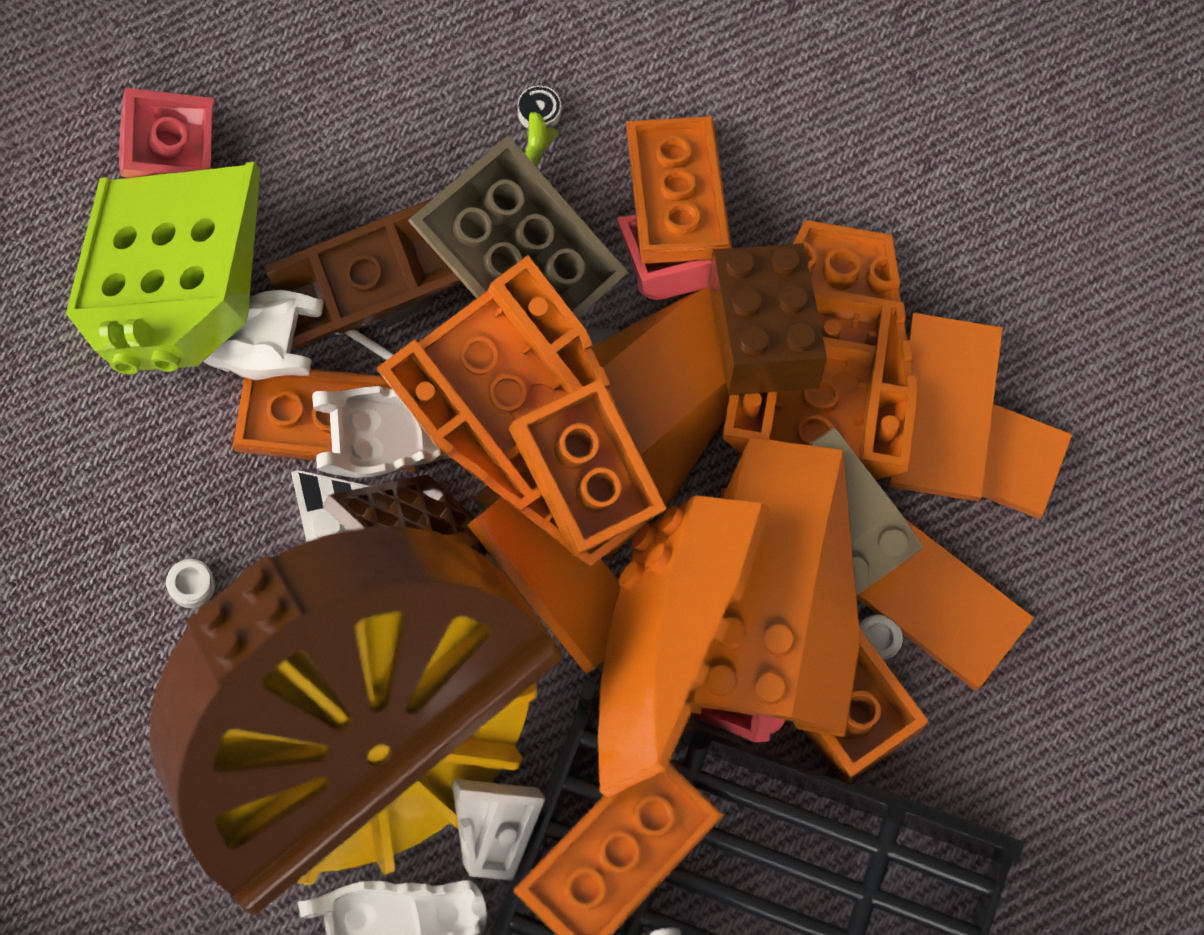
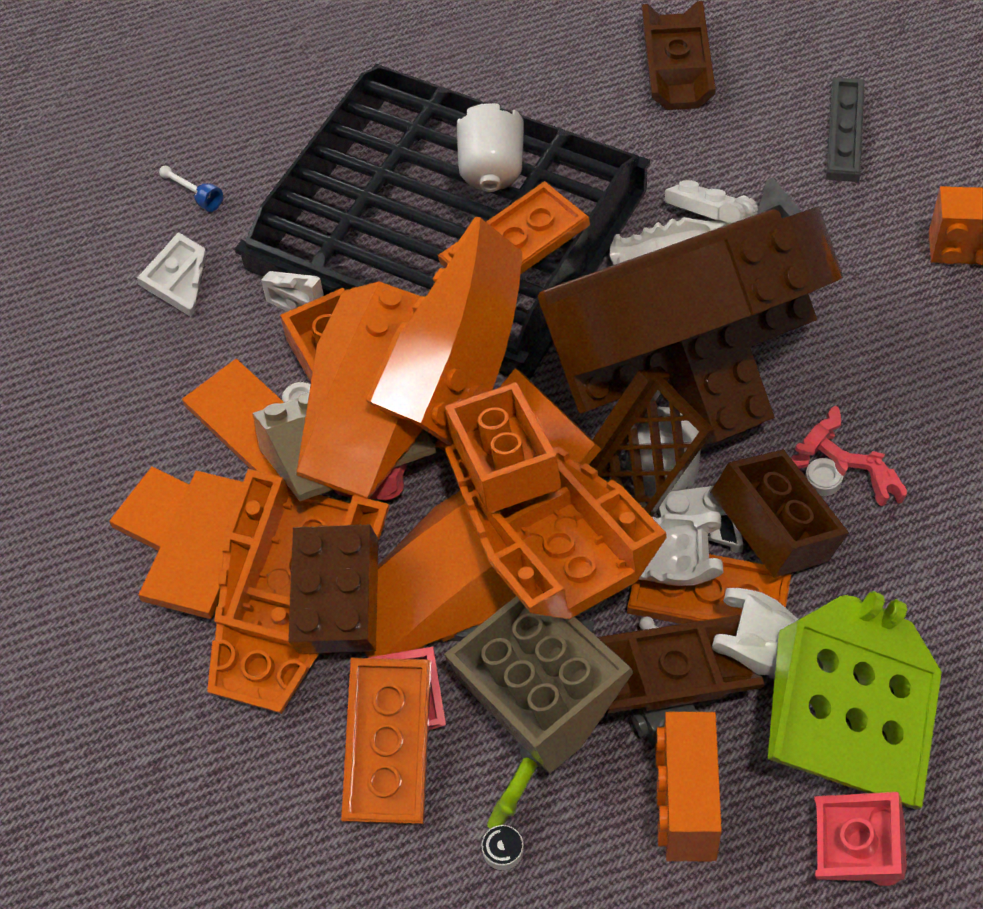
camera: 165 degrees left, 15 degrees down
(117, 584) = (882, 478): none -> coral piece
(245, 490) = (779, 512): none -> reddish brown brick
(345, 155) = (688, 786): none -> orange brick
(921, 787) = (290, 289): none -> white wing
(1102, 826) = (176, 273): none -> white wing

